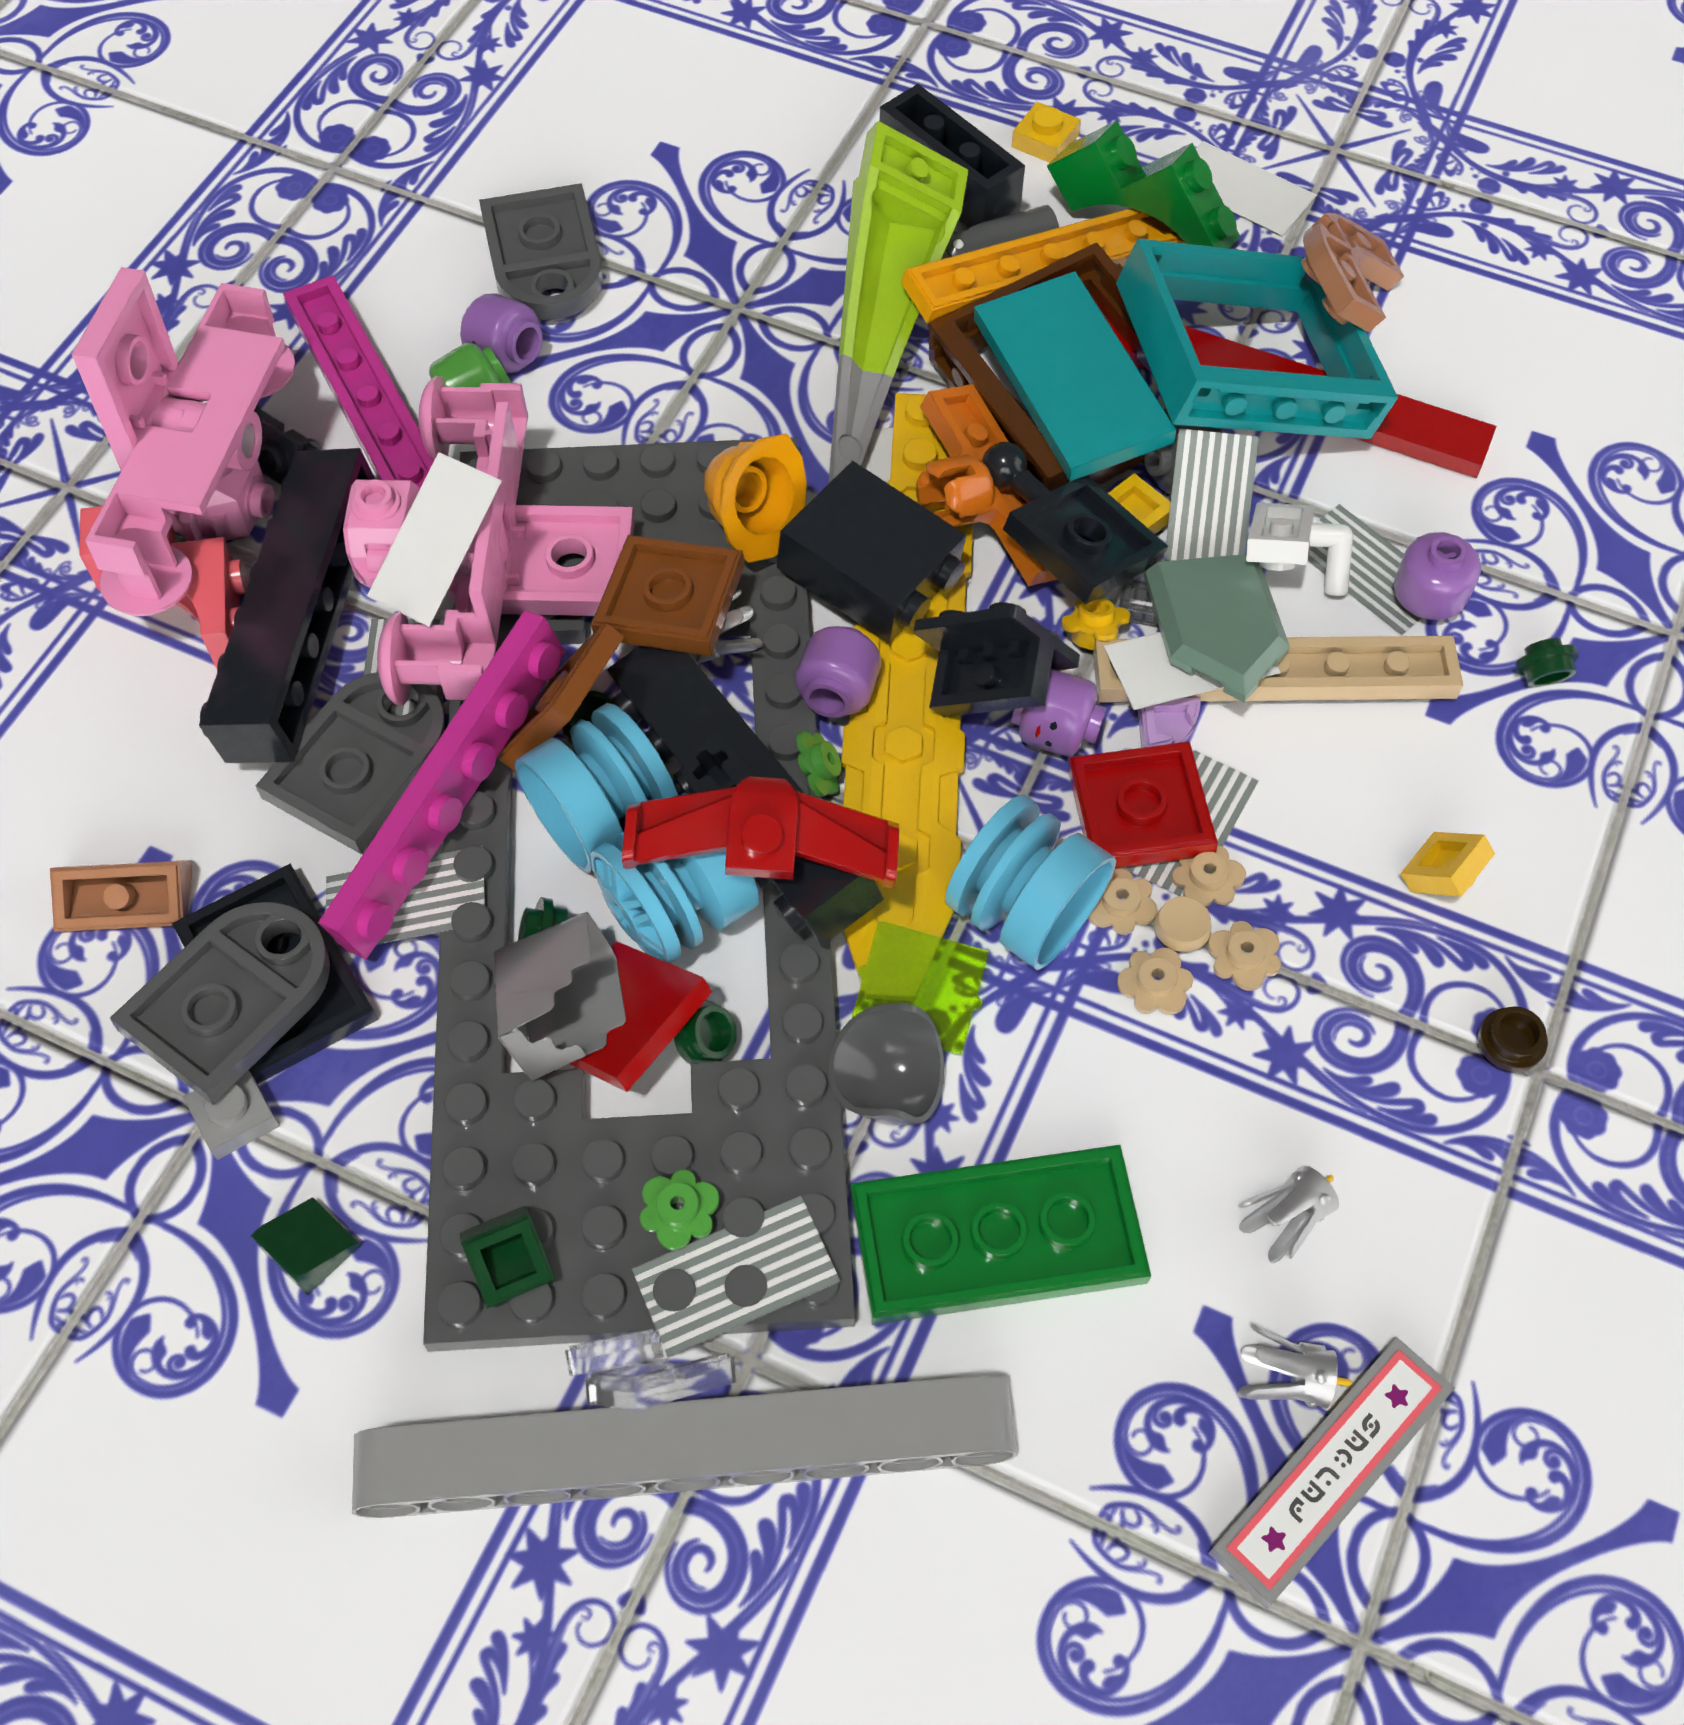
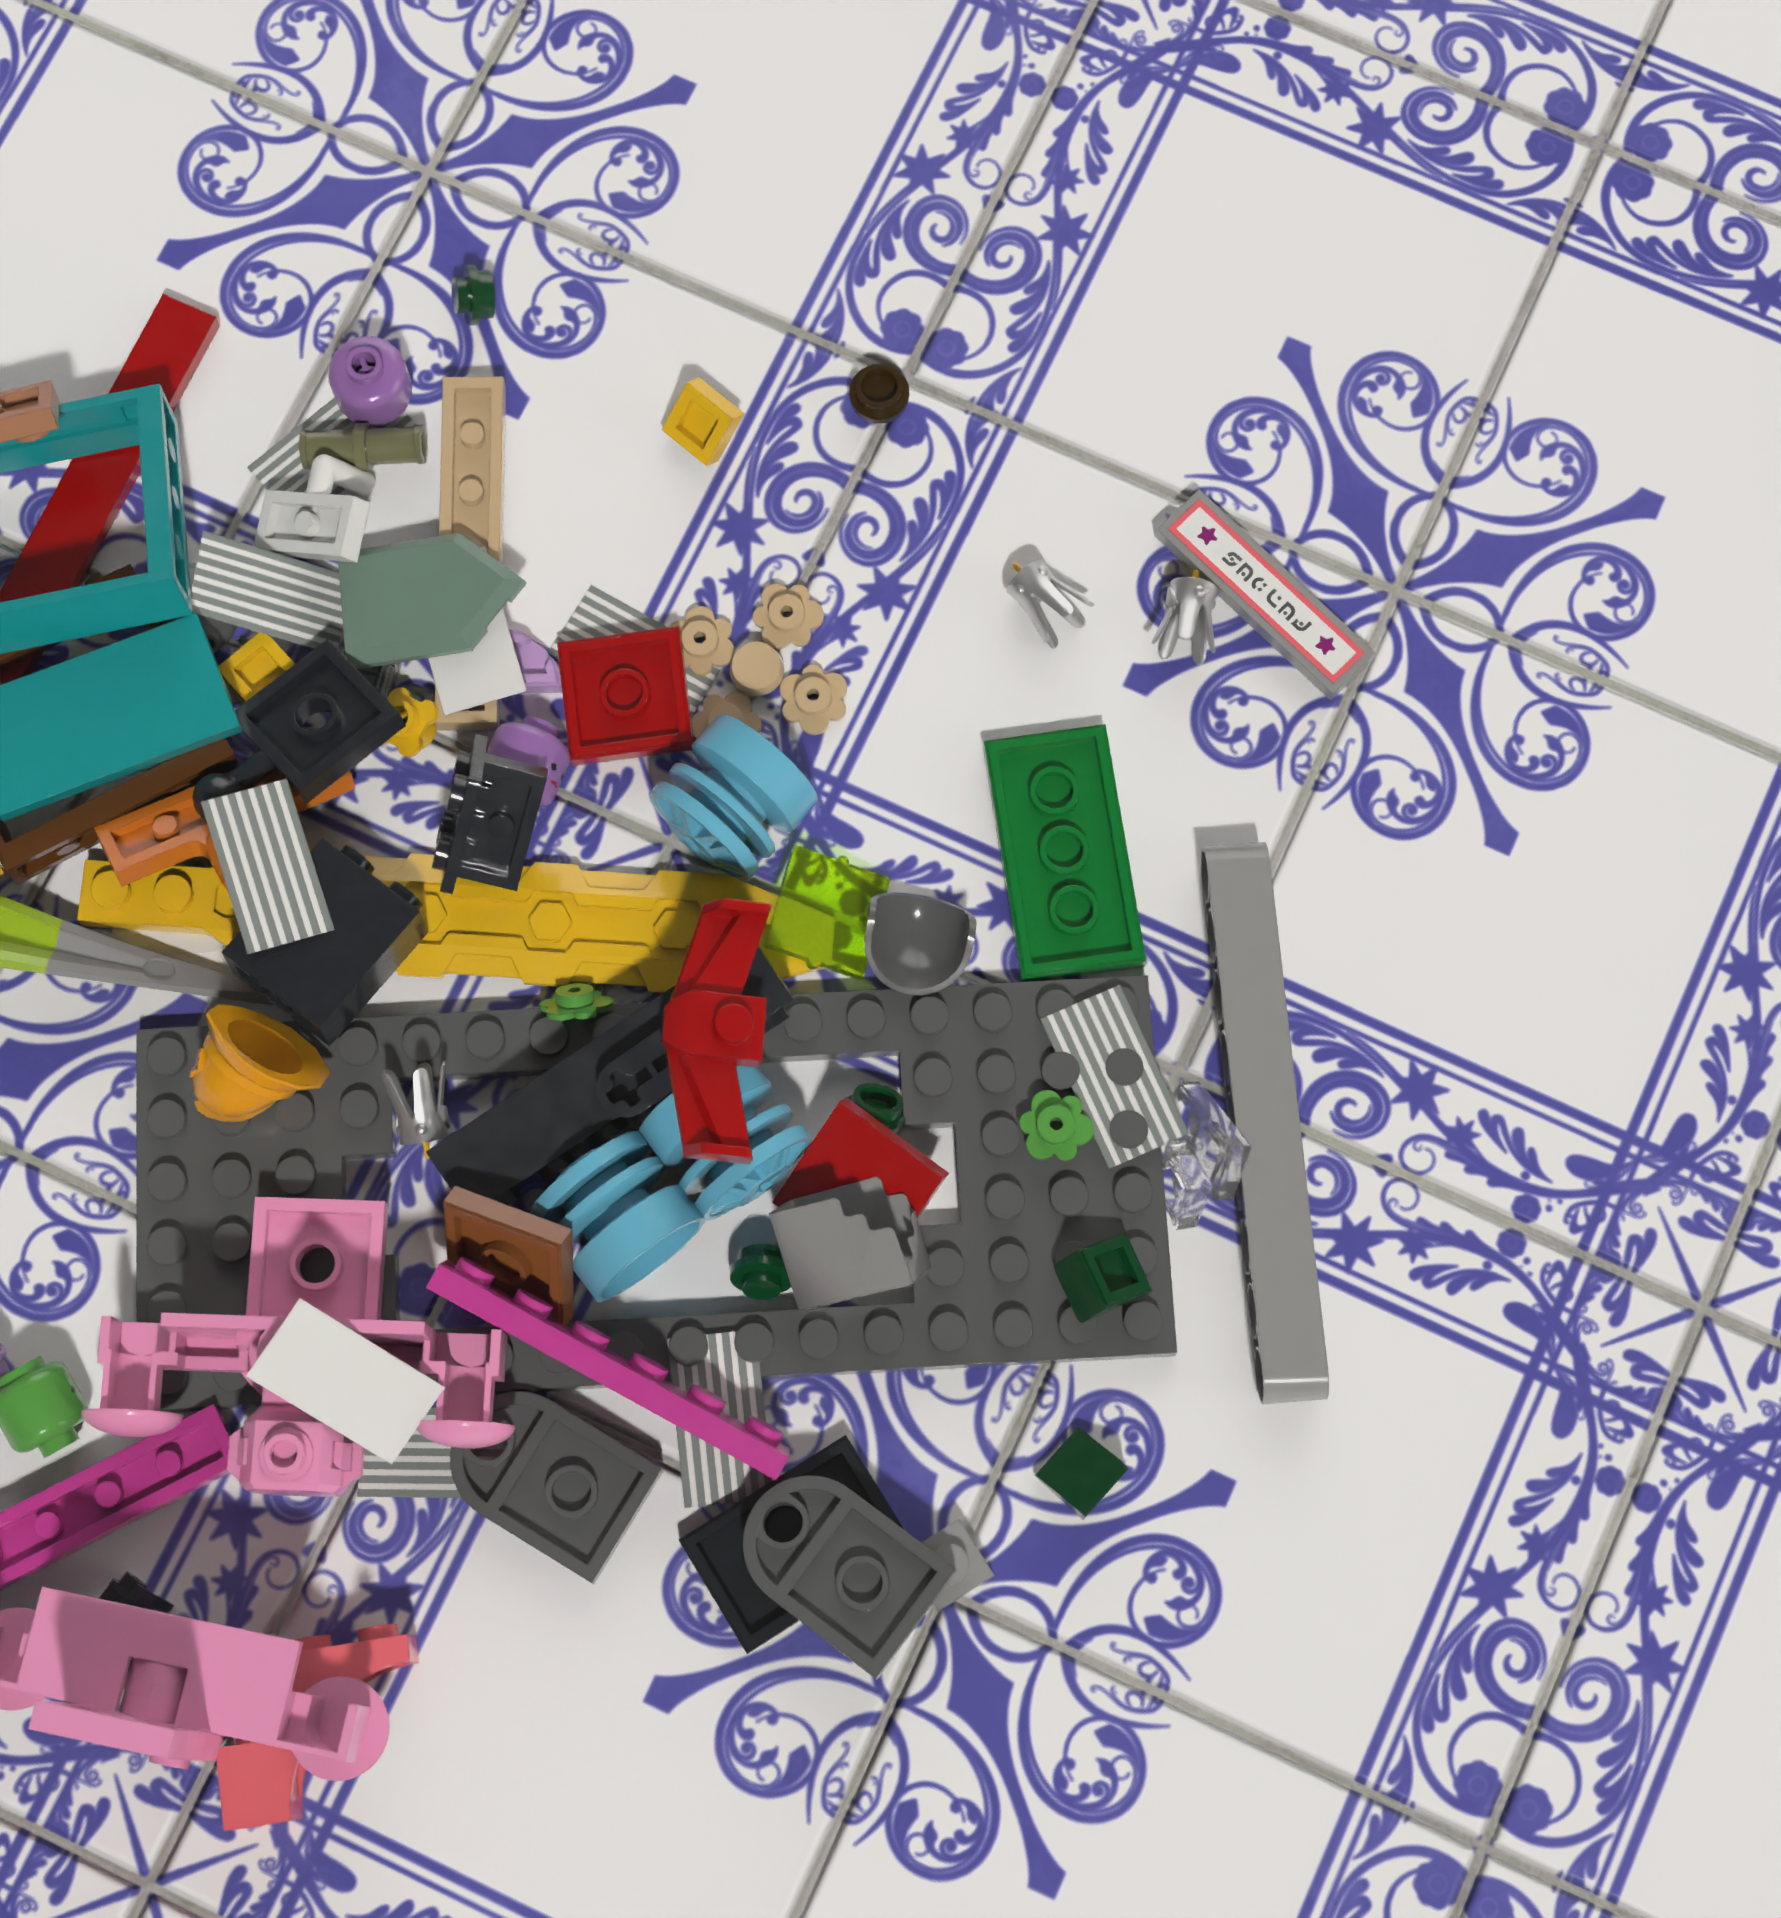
camera: 90 degrees left, 15 degrees up
(120, 895) = (704, 1716): nougat slope -> none
(286, 615) = (359, 1569): black brick -> none
(670, 594) = (389, 1146): dark orange tile -> none
(838, 671) = (472, 980): medium lavender head -> none
(933, 487) = (267, 866): none -> light grey sticker
(1372, 582) = (365, 445): none -> olive pin

